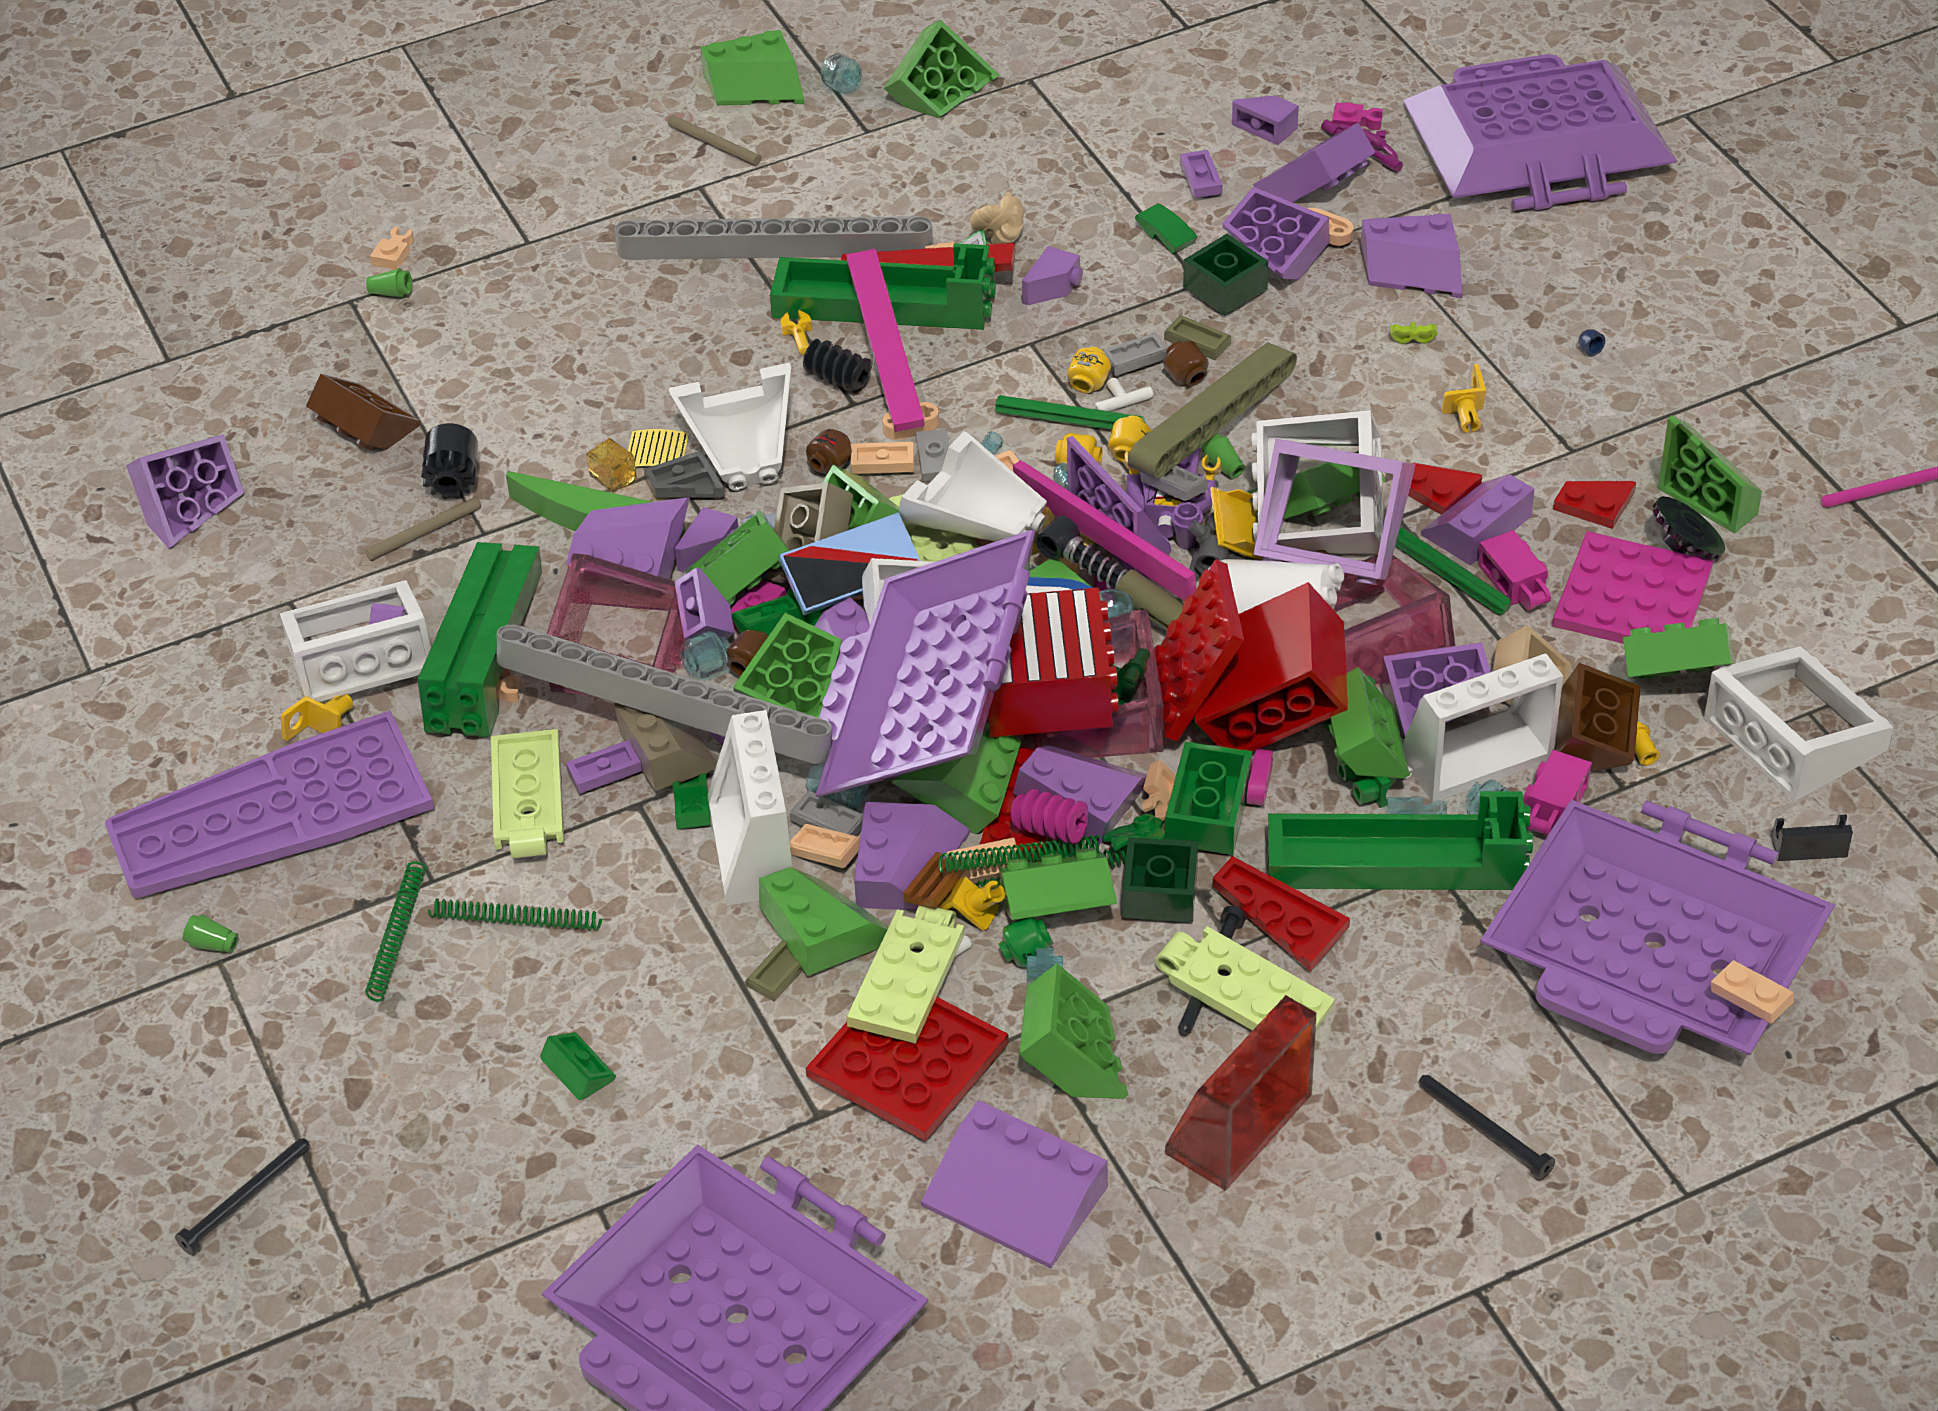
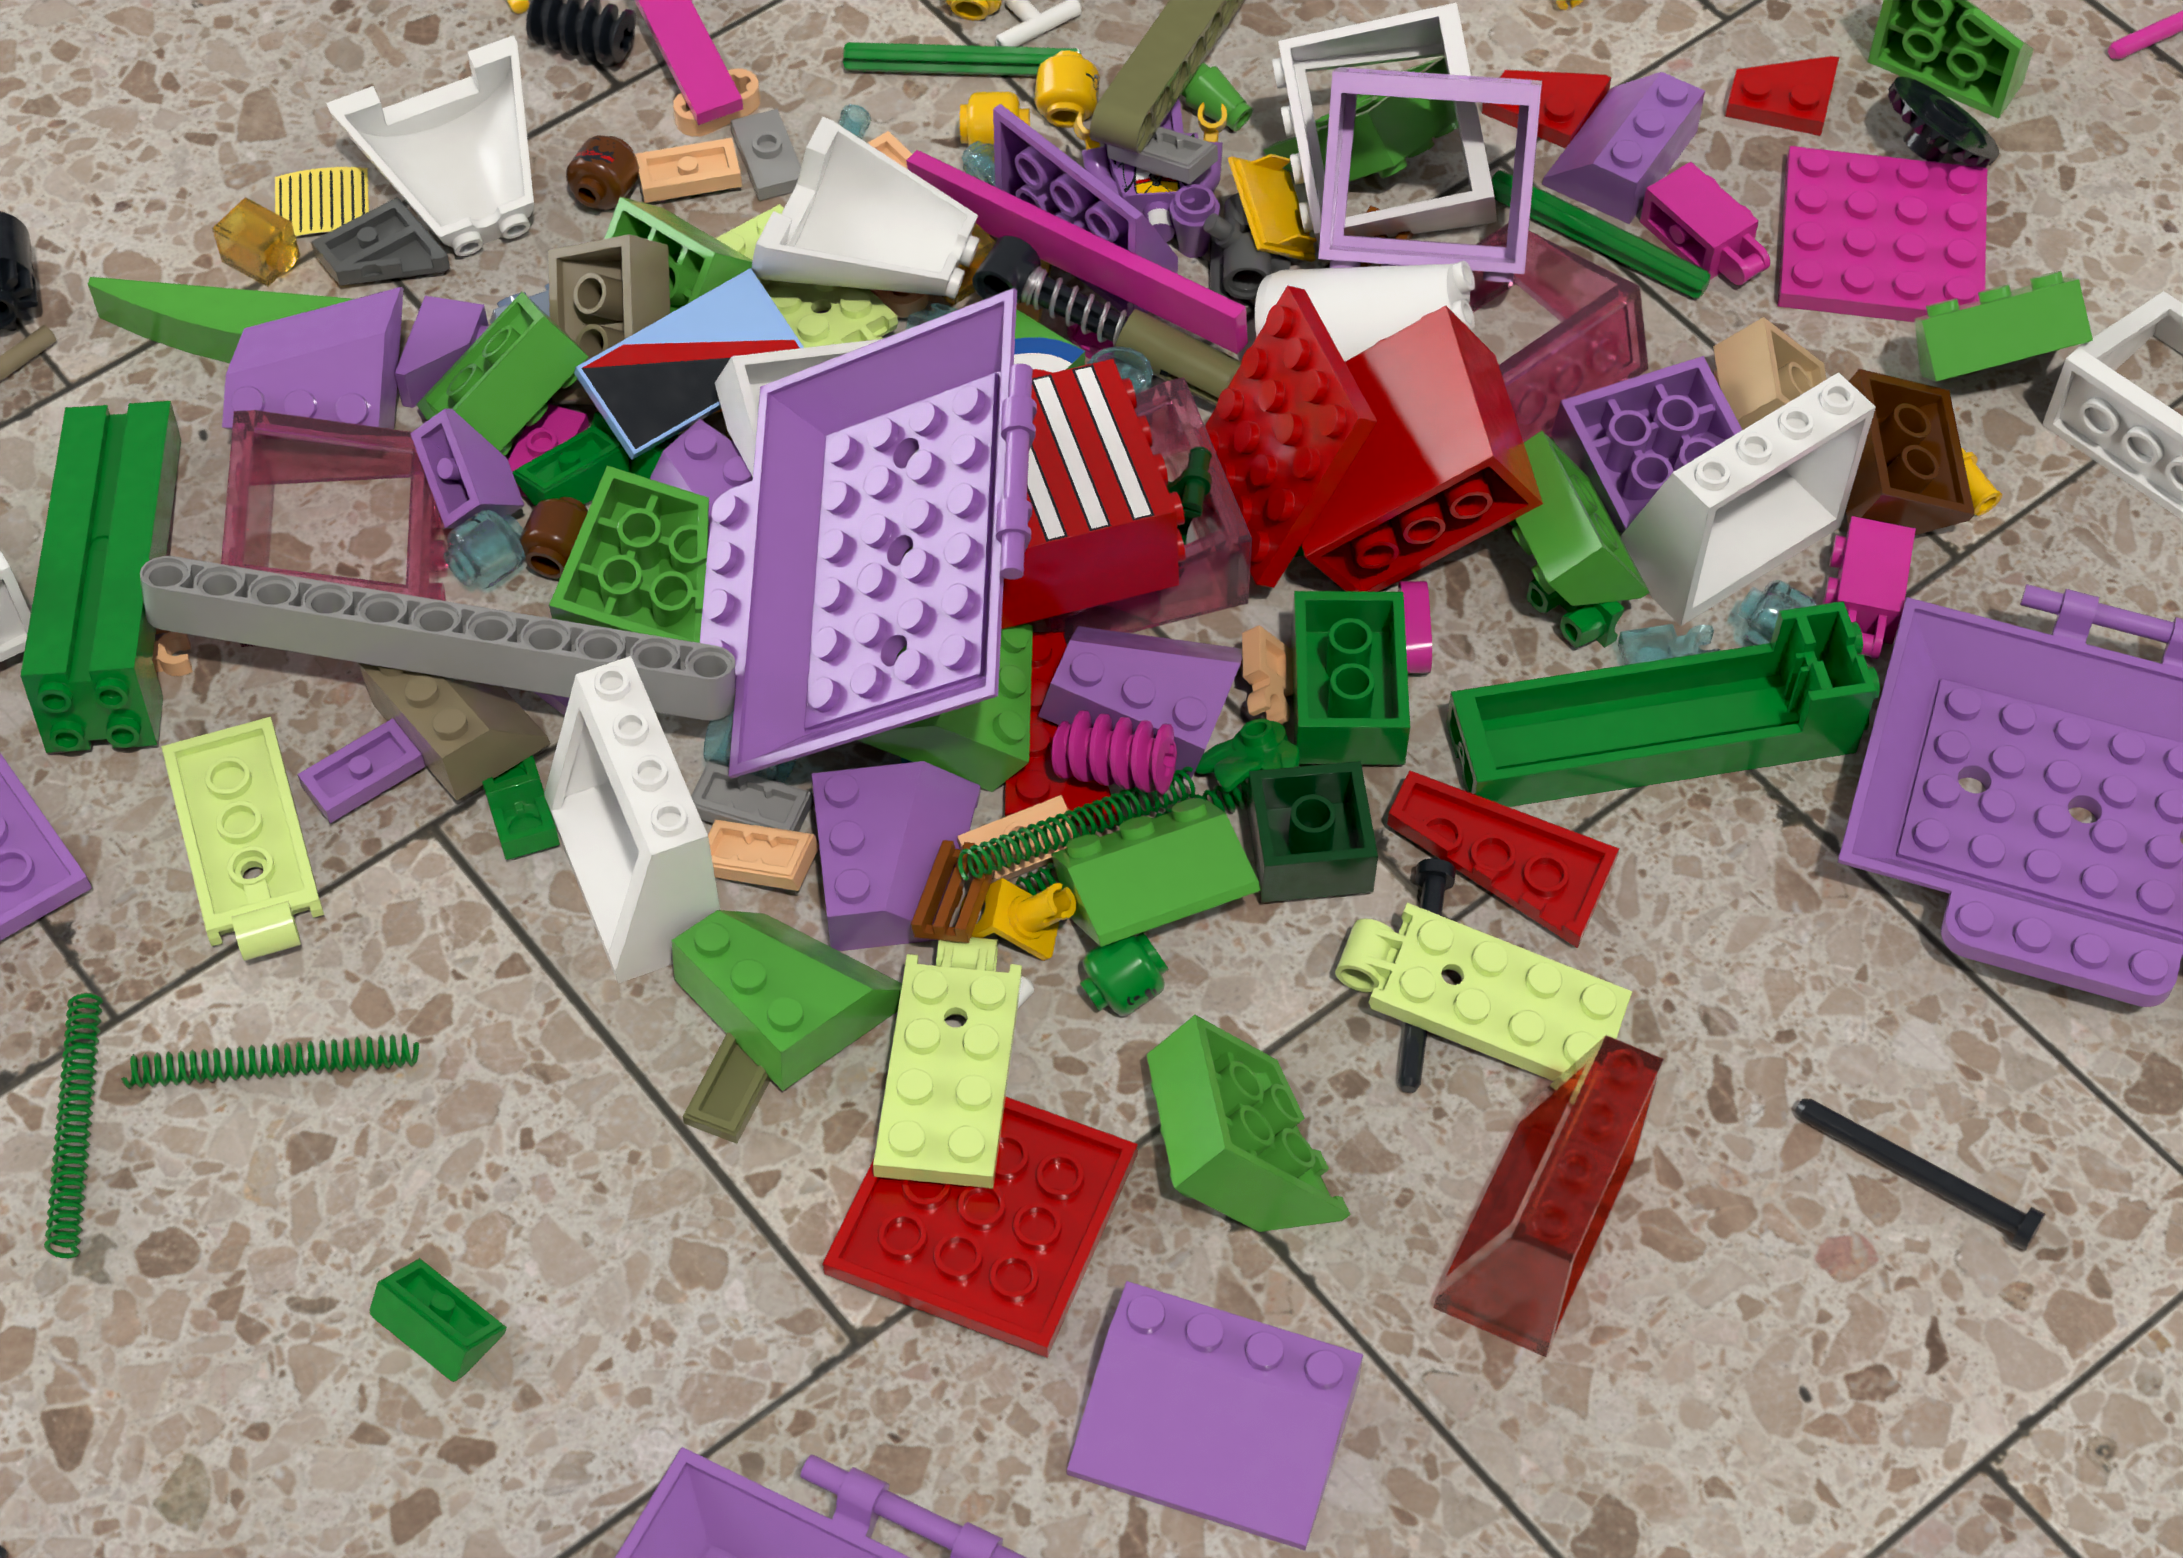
camera: 15 degrees left, 10 degrees up
(1041, 963) = (1163, 1011): clear light blue gear -> none

